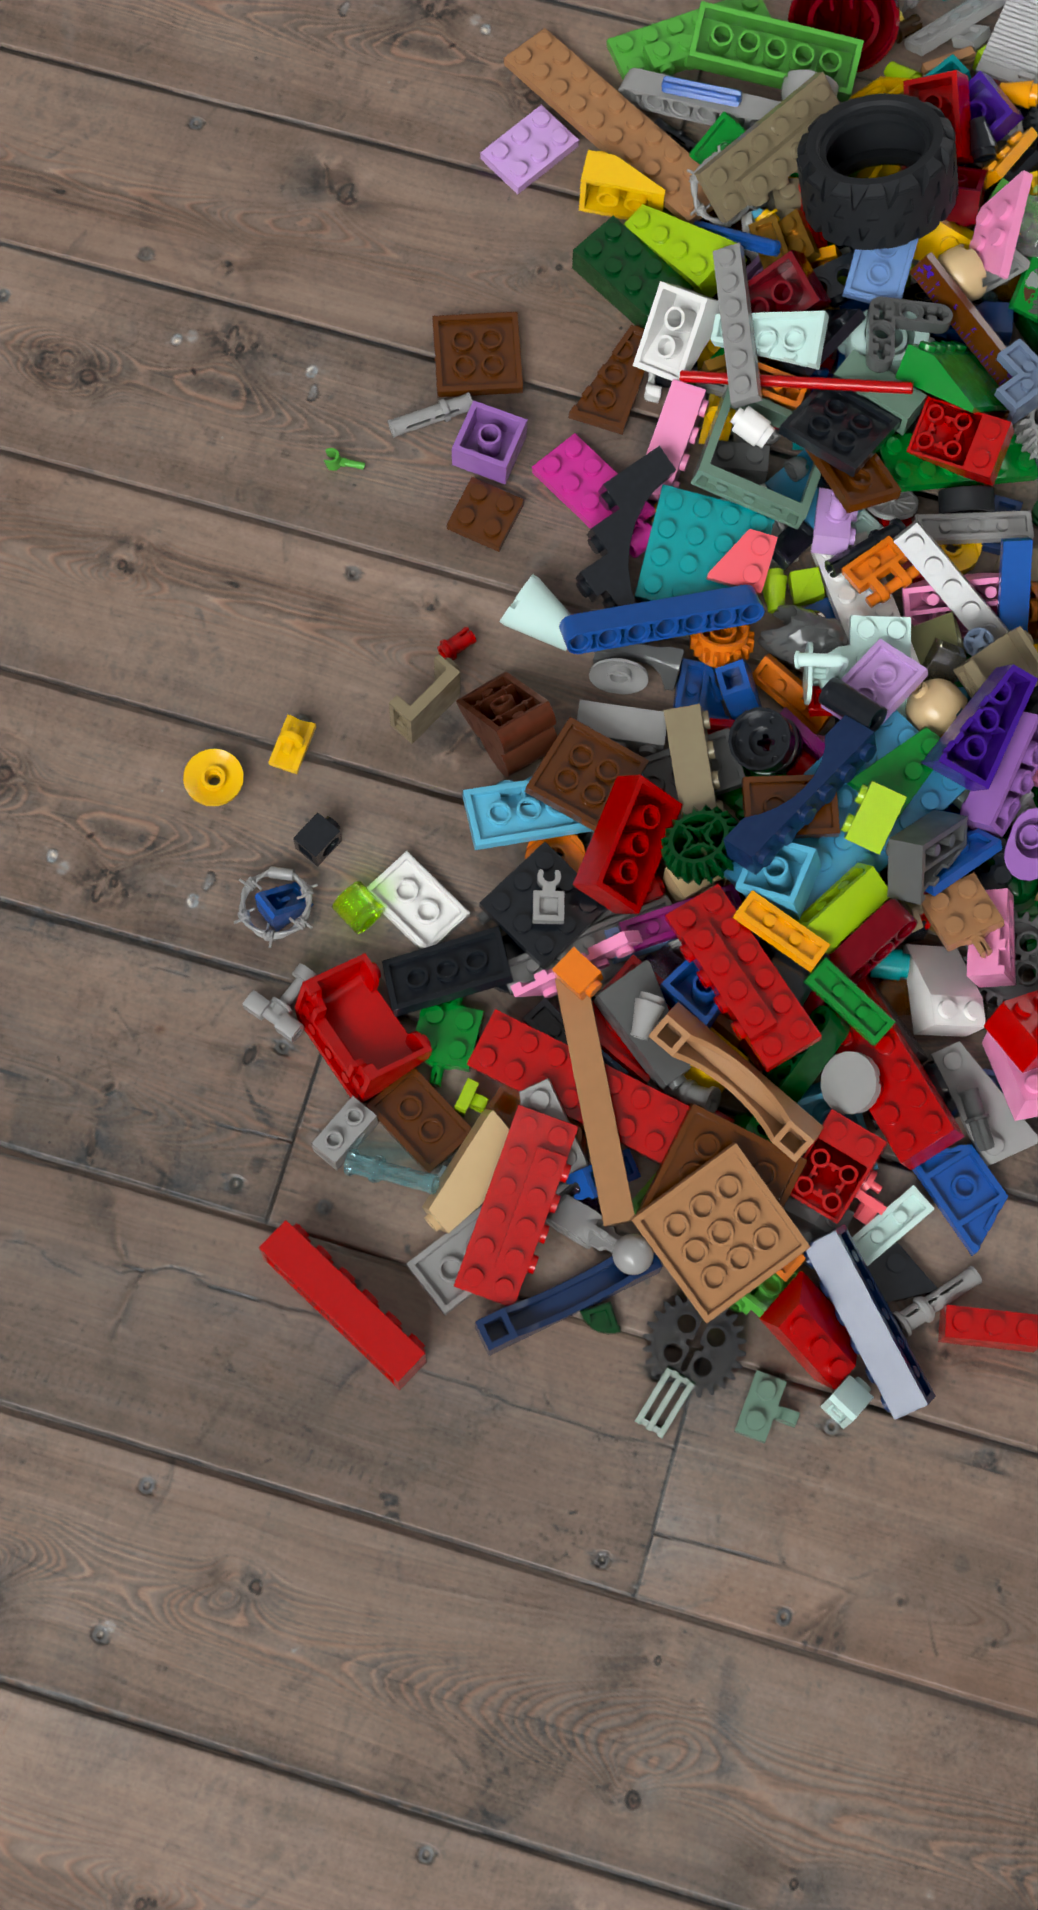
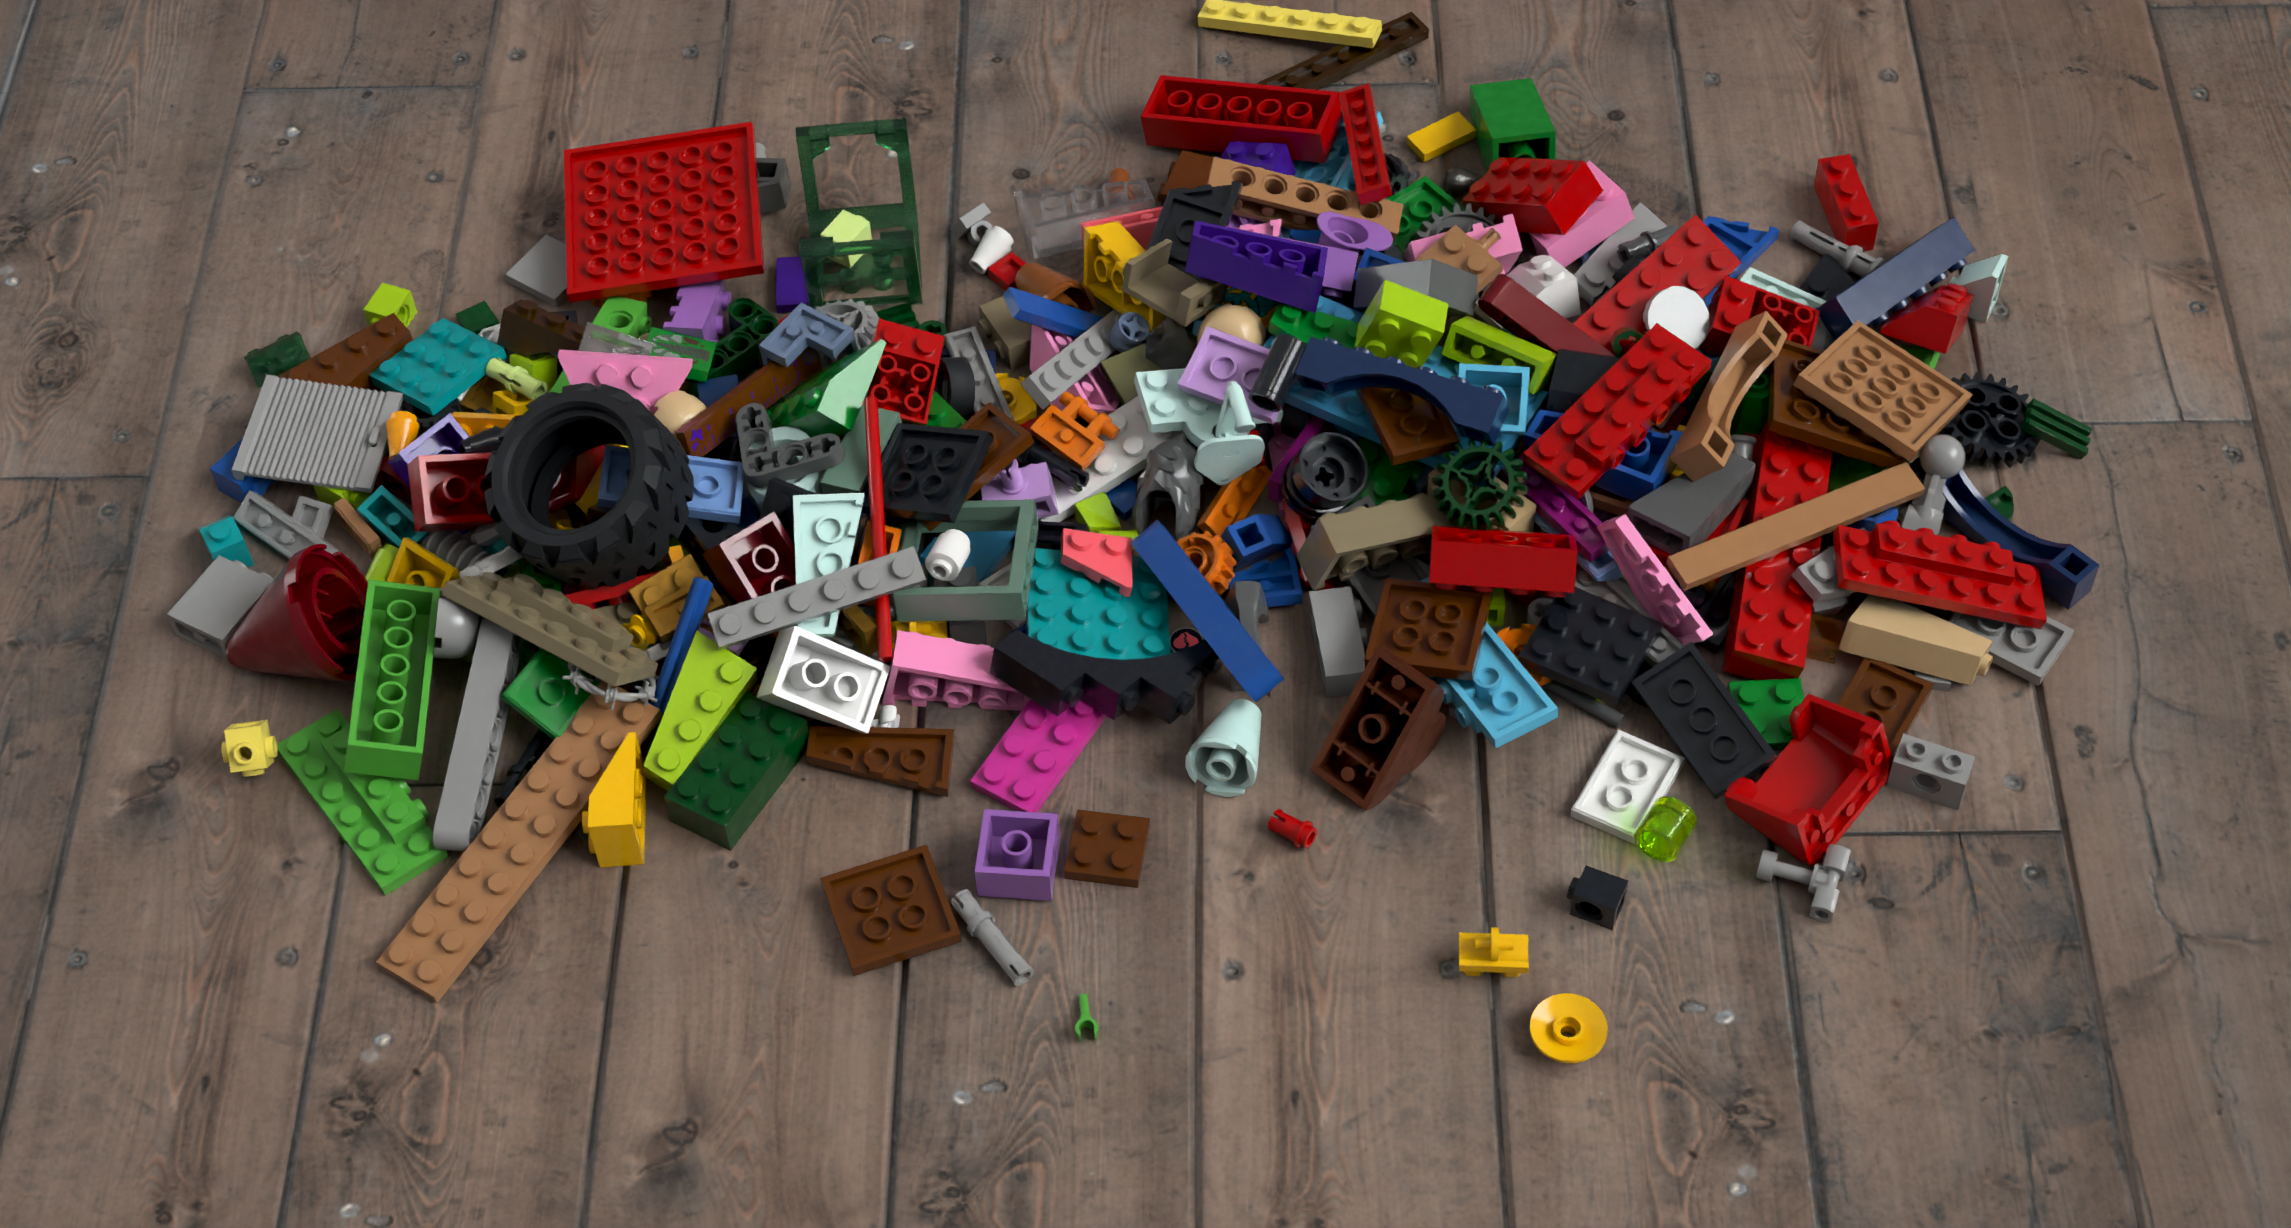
camera: 100 degrees left, 20 degrees down
(275, 873) = (1710, 883): light grey piece -> none
(280, 904) = (1696, 911): blue slope -> none
(343, 1304) = (2117, 712): red brick -> none
(378, 1169) = (1954, 725): clear light blue pin -> none
(417, 718) = (1387, 818): dark tan panel -> none
(470, 1099) = (1832, 671): lime tile -> none
(529, 149) = (567, 936): lavender plate -> none
(548, 903) = (1596, 621): light grey plate -> none
(578, 974) = (1680, 551): orange brick -> none
(618, 676) = (1275, 649): light grey dish -> none
(646, 1014) = (1694, 485): light grey cone -> none
(701, 91) = (473, 730): axle -> none
(762, 1408) = (2014, 360): sand green plate -> none
(781, 931) = (1557, 381): light orange plate -> none
(849, 1001) = (1601, 321): green tile -> none

